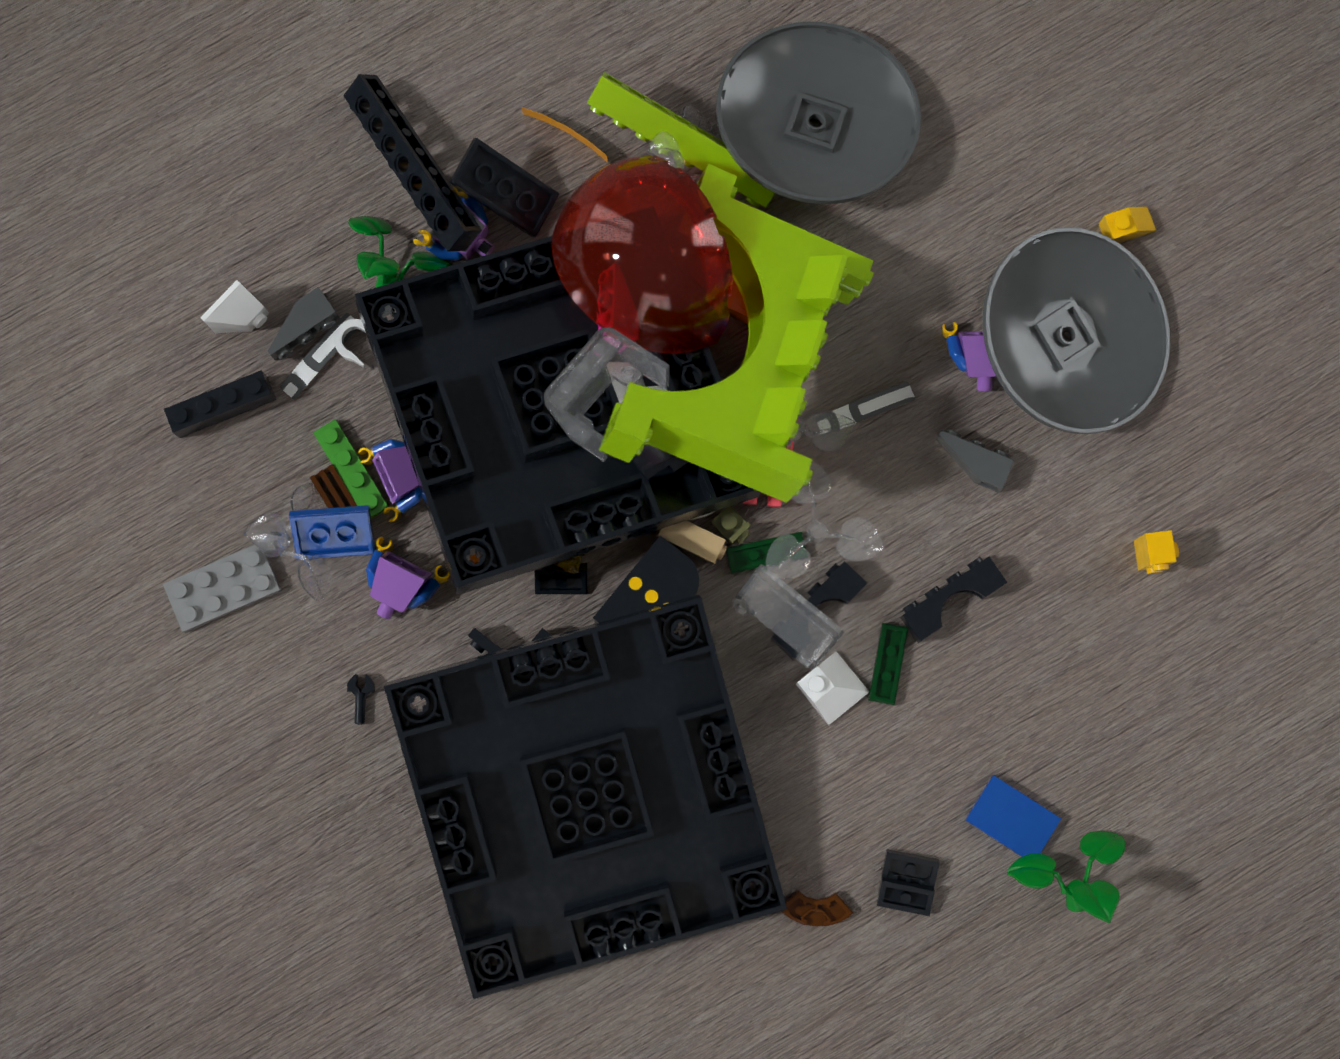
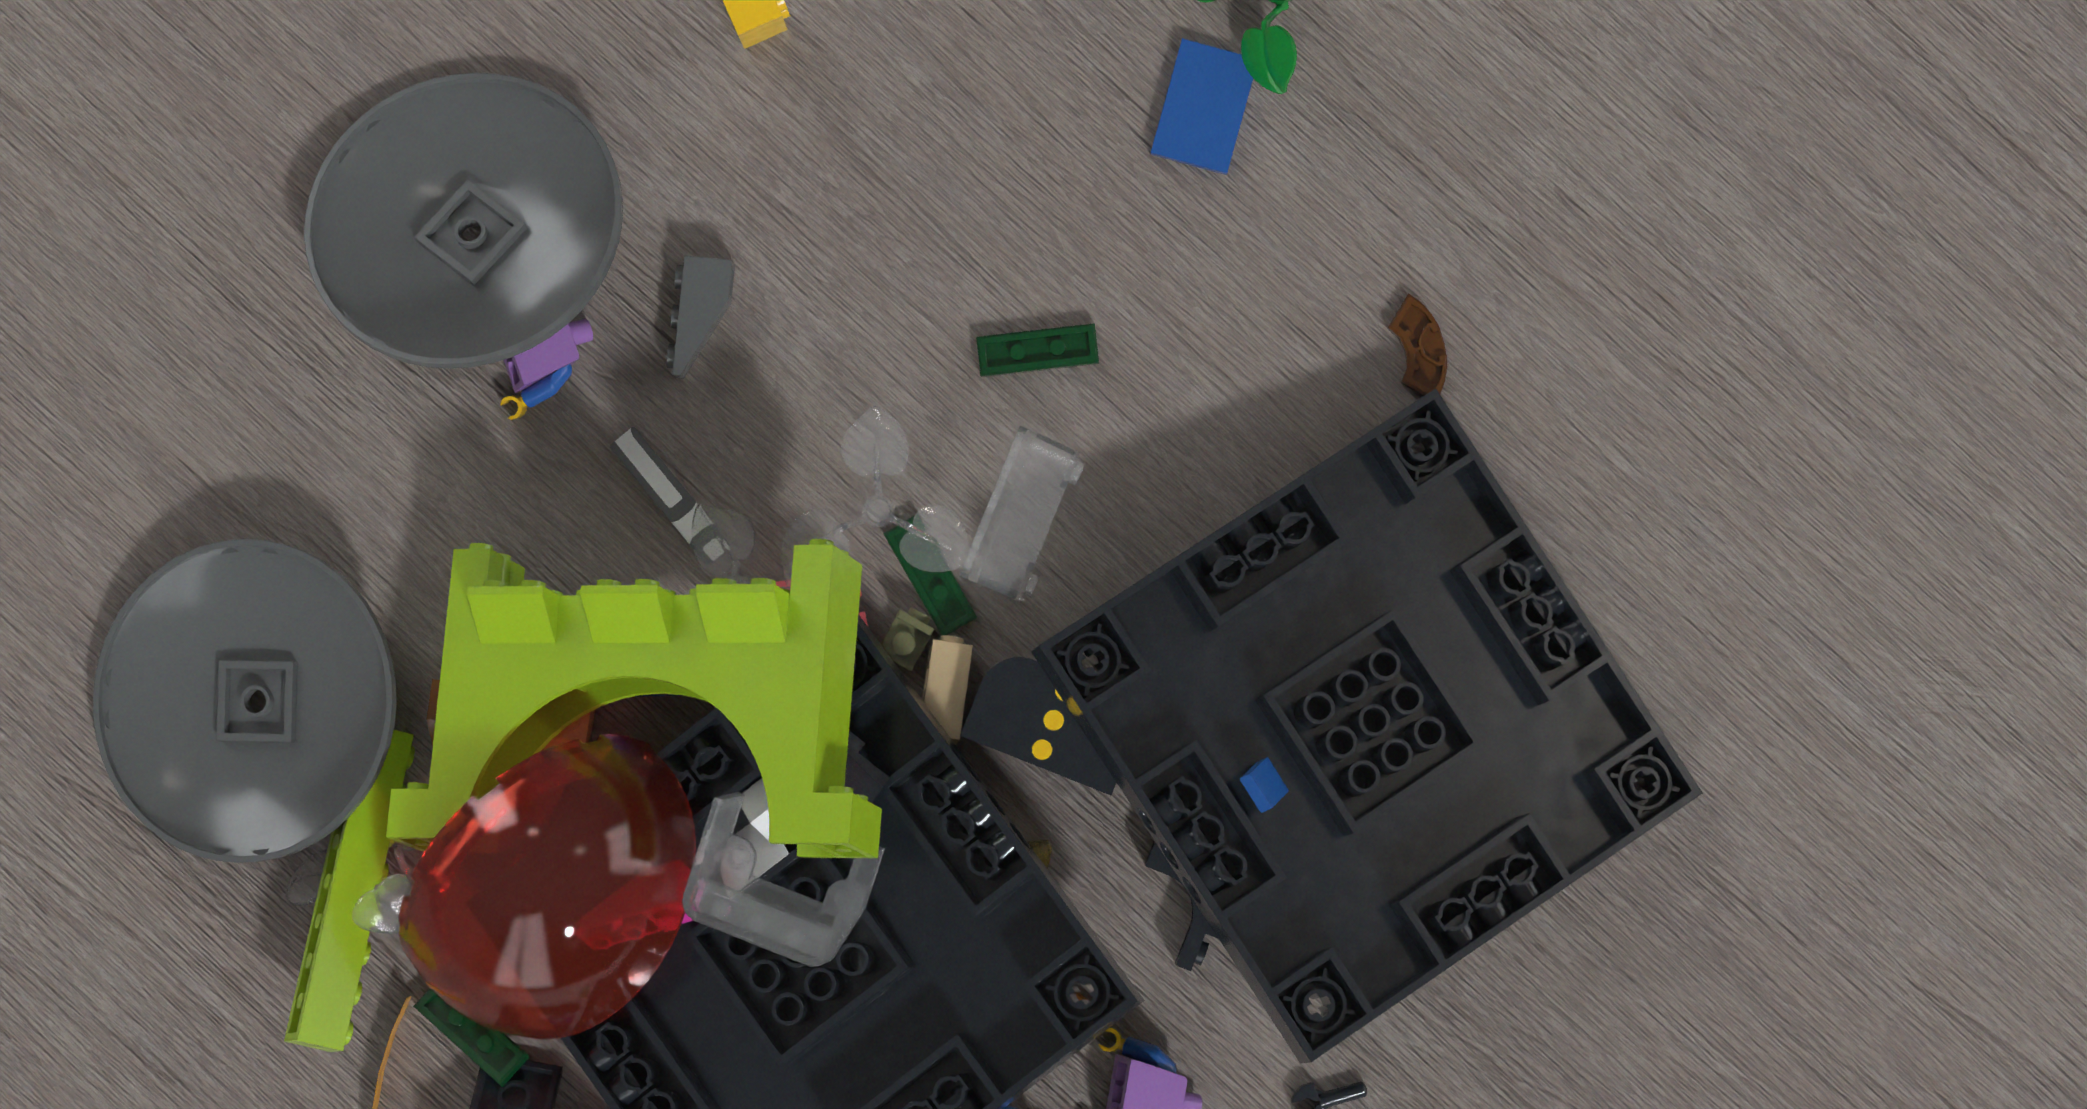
camera: 105 degrees left, 5 degrees up
(555, 197) = (486, 1047): none -> dark green tile
(558, 581) = (1067, 859): black slope -> none
(568, 714) = (1264, 785): none -> blue tile
(832, 688) = (1097, 420): white slope -> none
(840, 586) = (945, 453): black arch -> none
(908, 882) = (1341, 229): black slope -> none
(926, 617) = (954, 317): black arch -> none
(1127, 224) = (272, 191): yellow slope -> none

